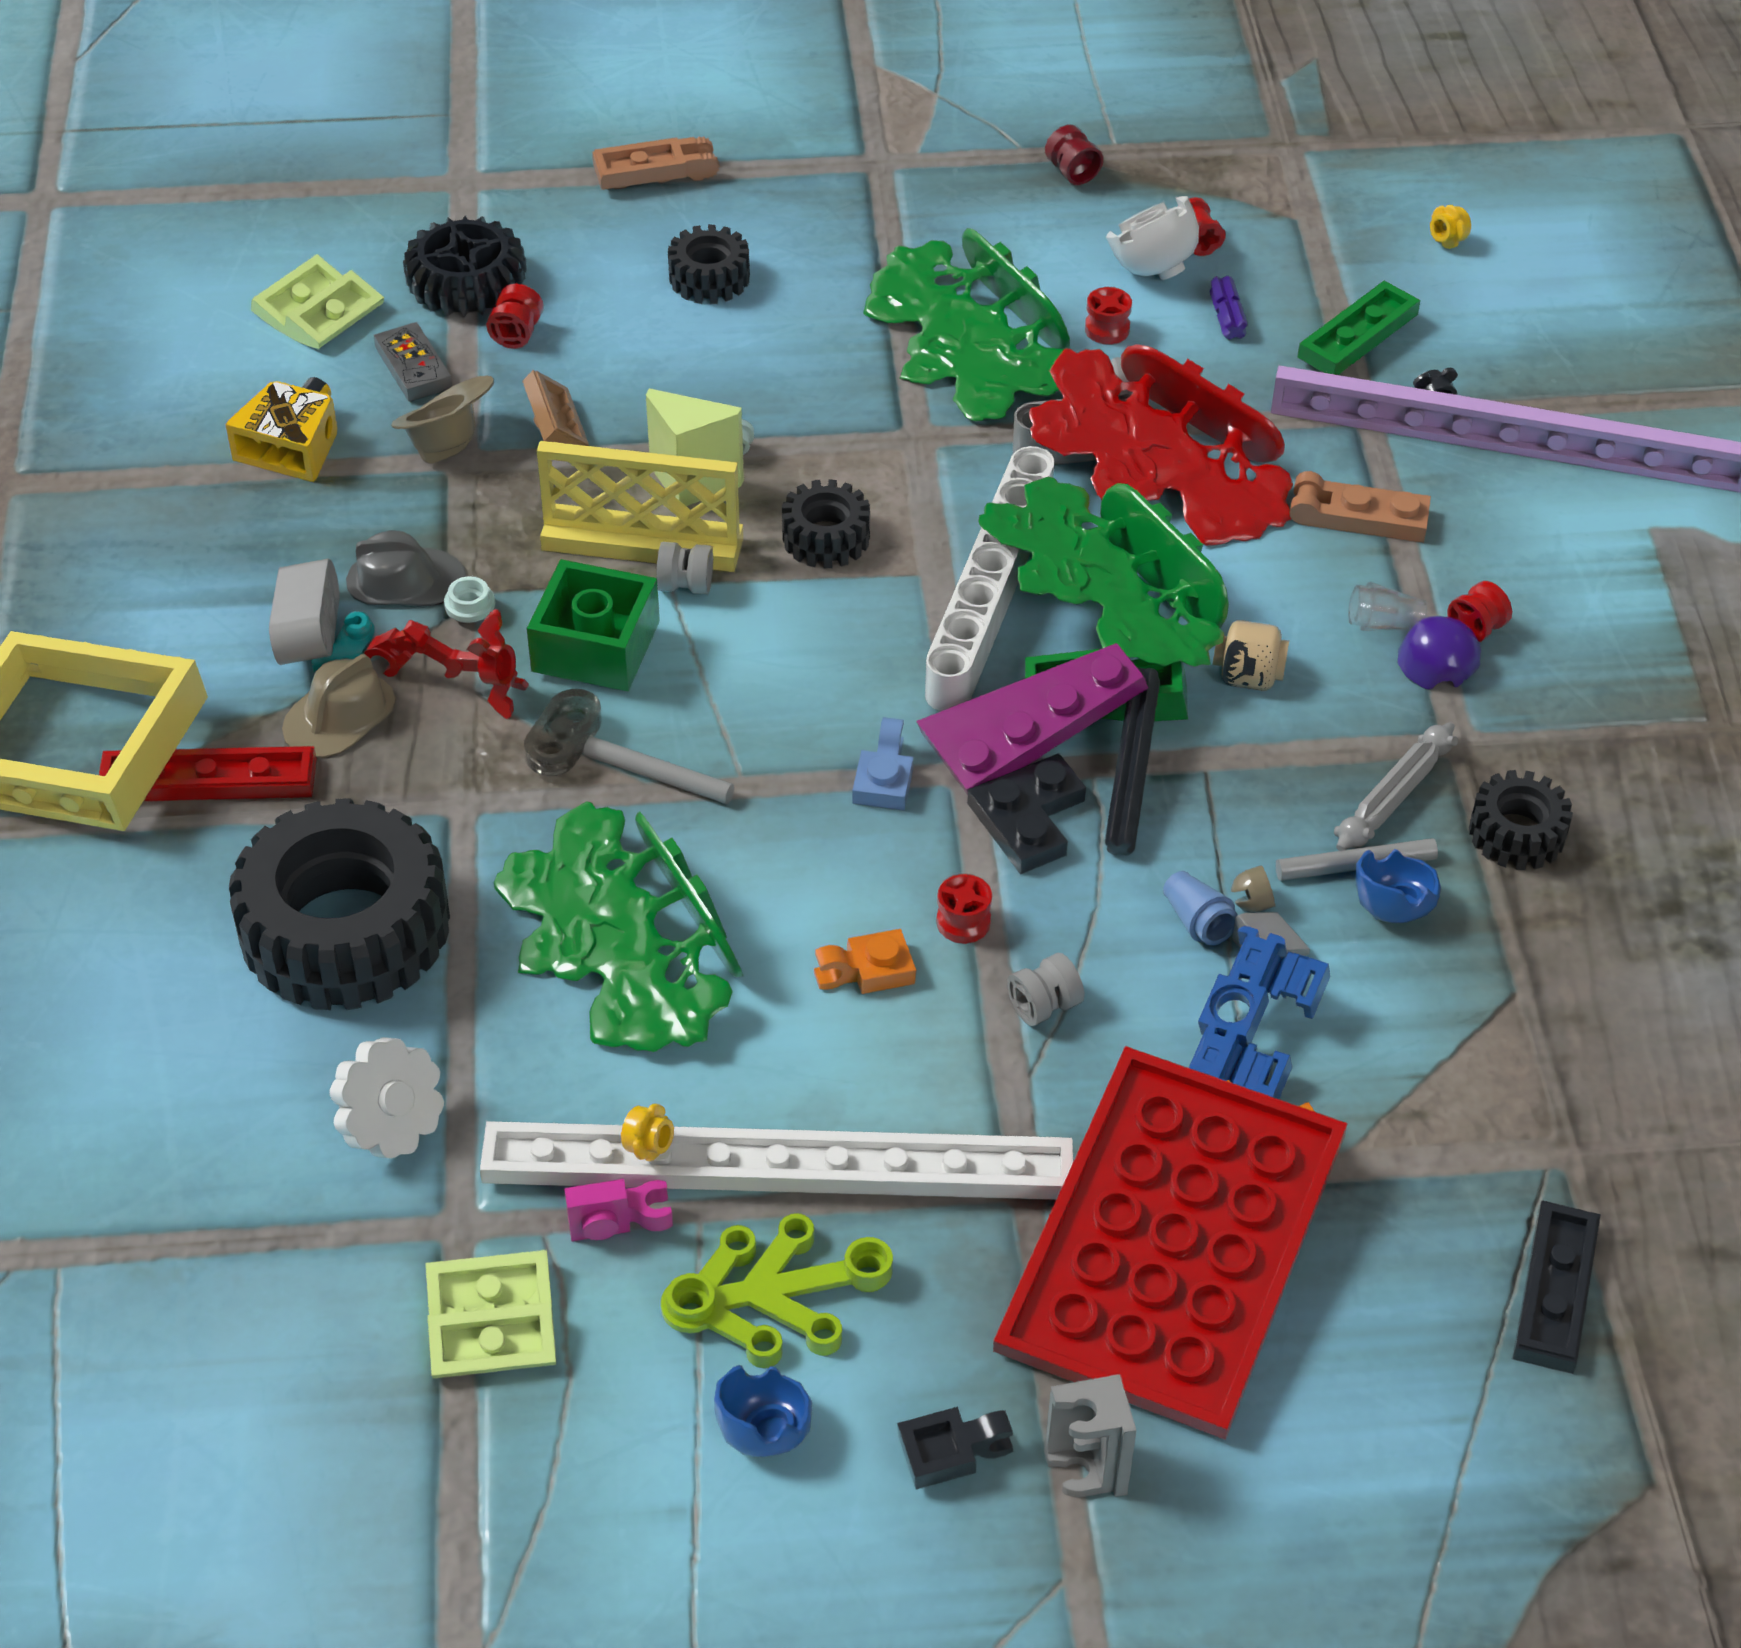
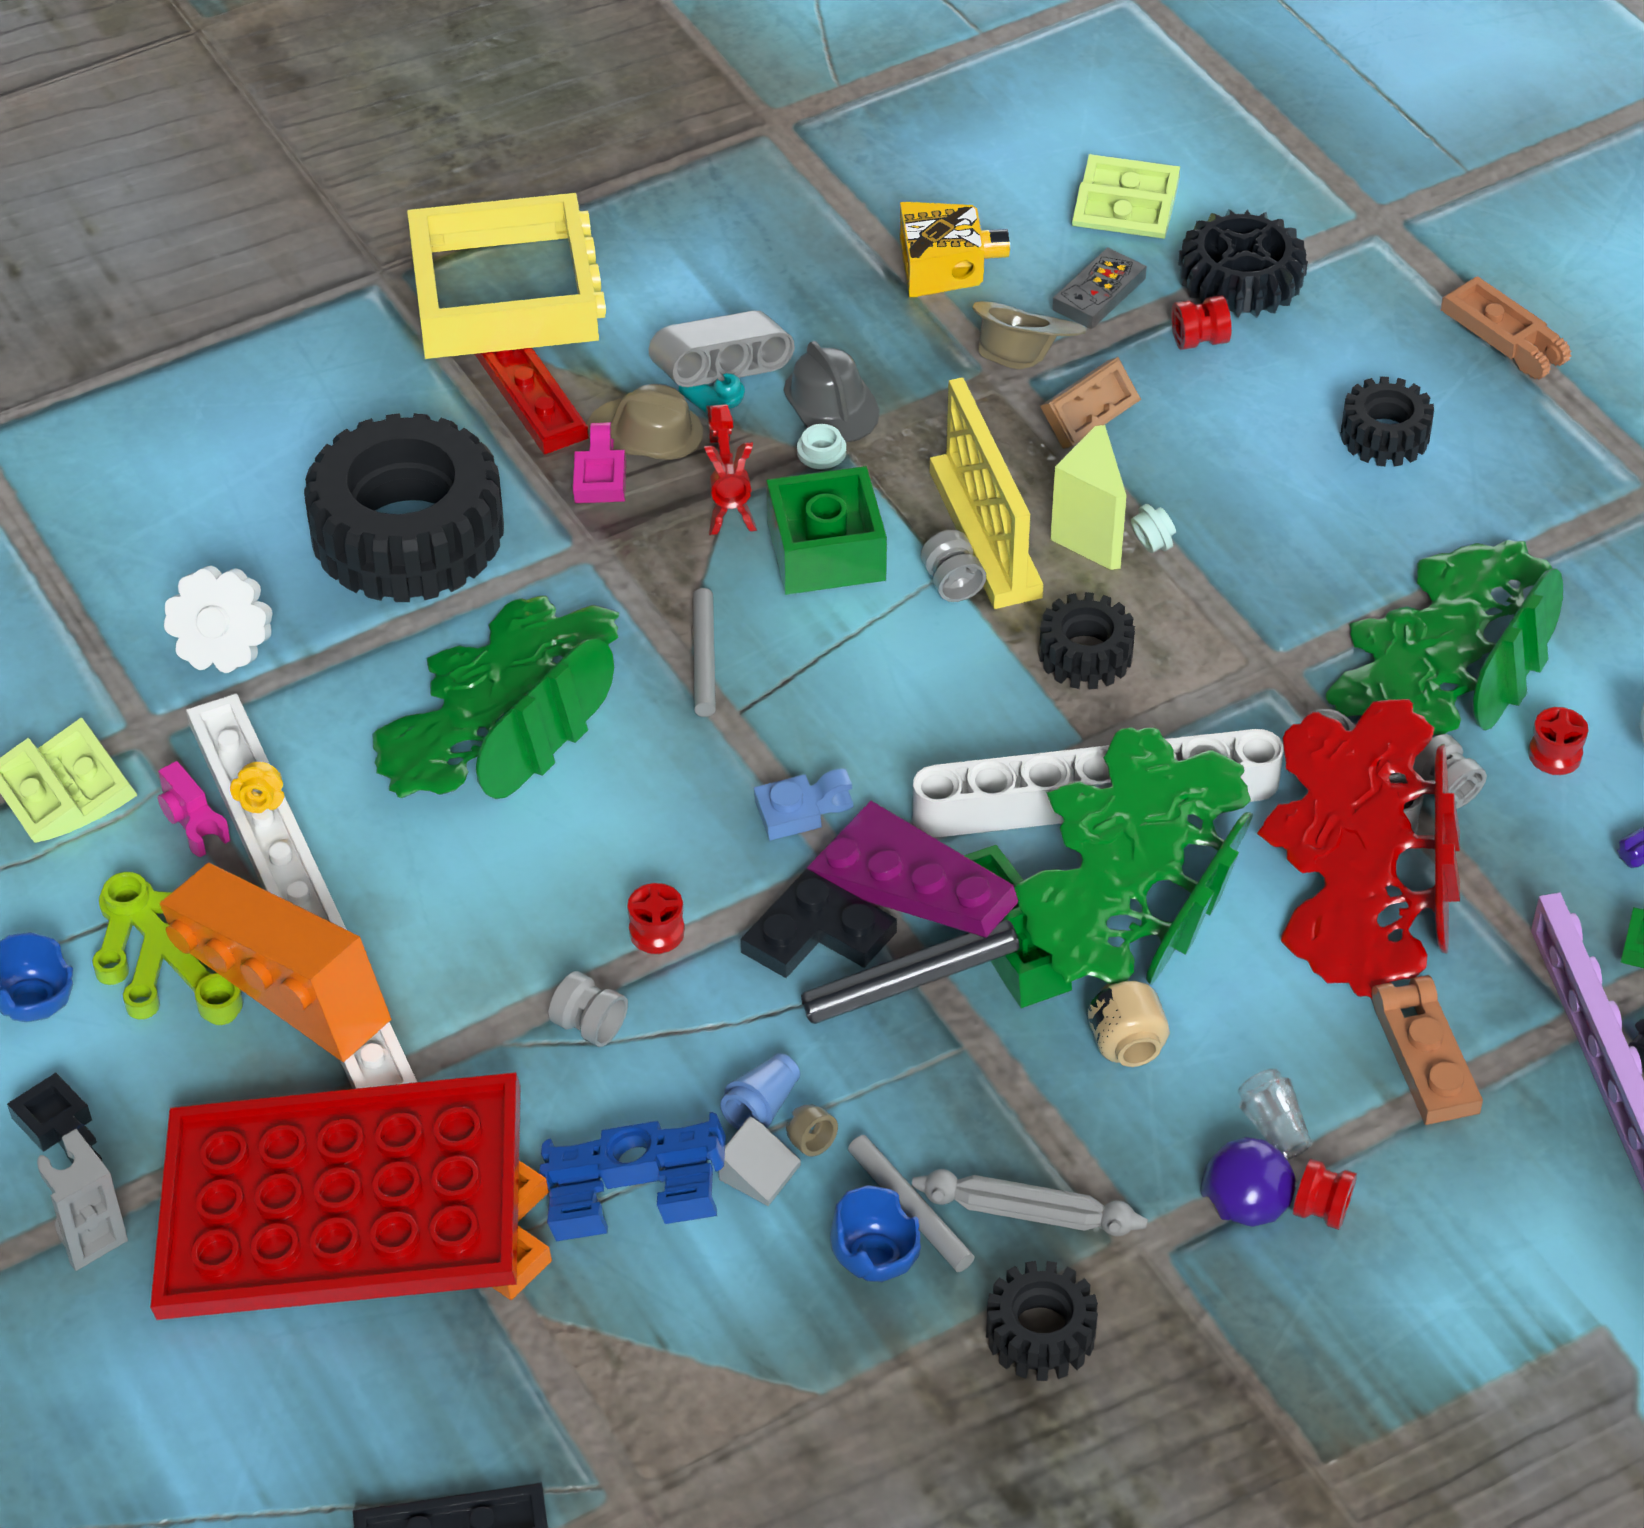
camera: 65 degrees right, 0 degrees up
(382, 757) = (601, 471): none -> dark pink plate
(555, 738) = (688, 567): clear smoke plate -> none
(871, 960) = (560, 883): orange plate -> none
(883, 1177) = (280, 957): none -> orange wedge

